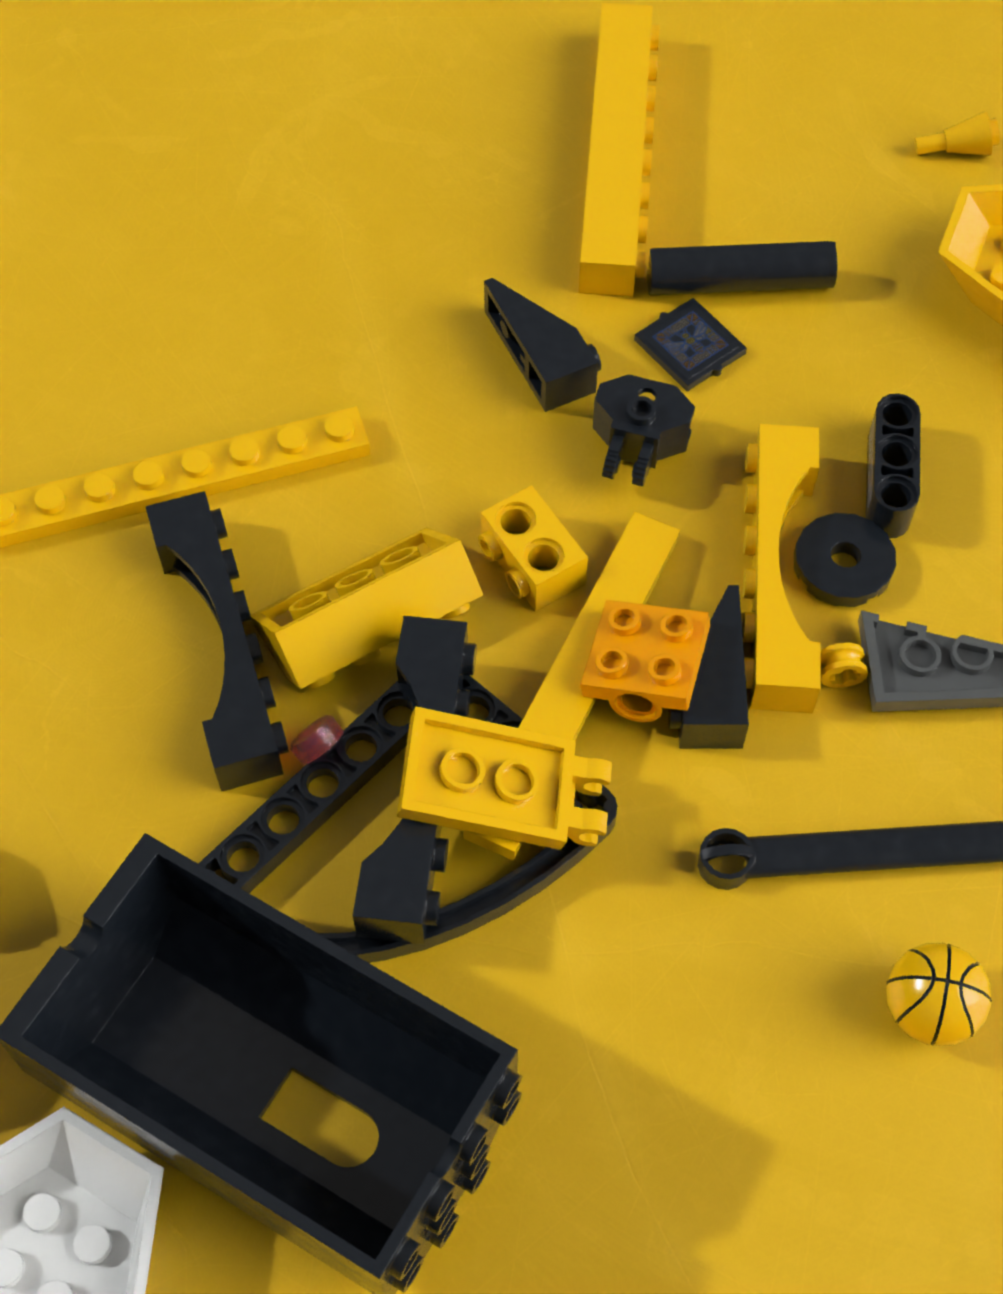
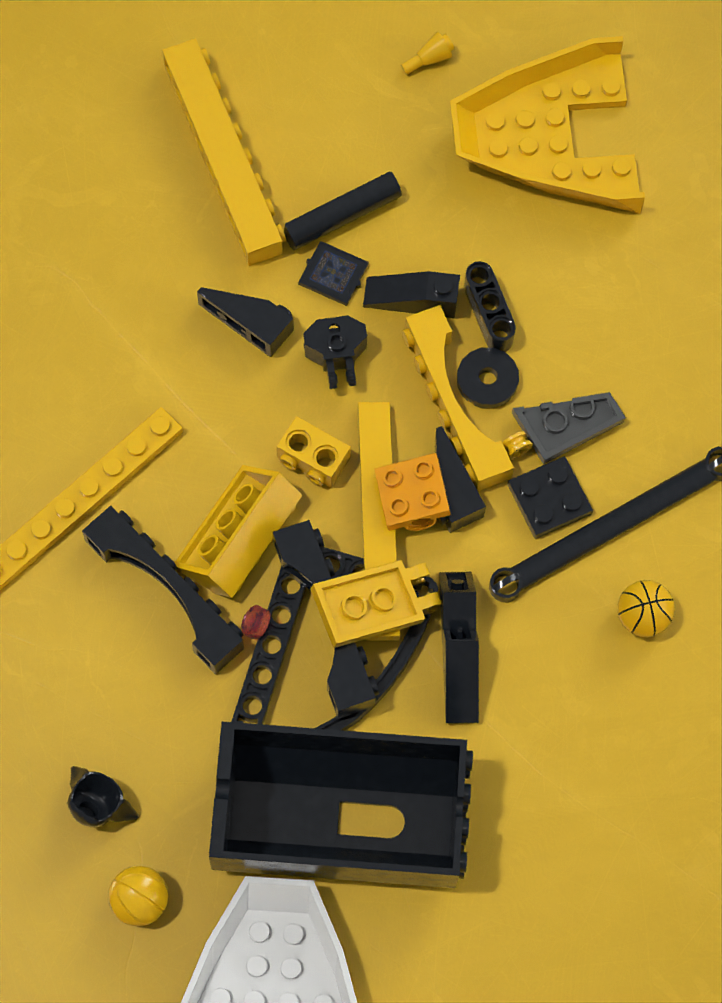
camera: 30 degrees left, 10 degrees up
(600, 918) = (459, 647): none -> black slope
(794, 400) = (413, 292): none -> black slope
(860, 763) = (550, 497): none -> black plate

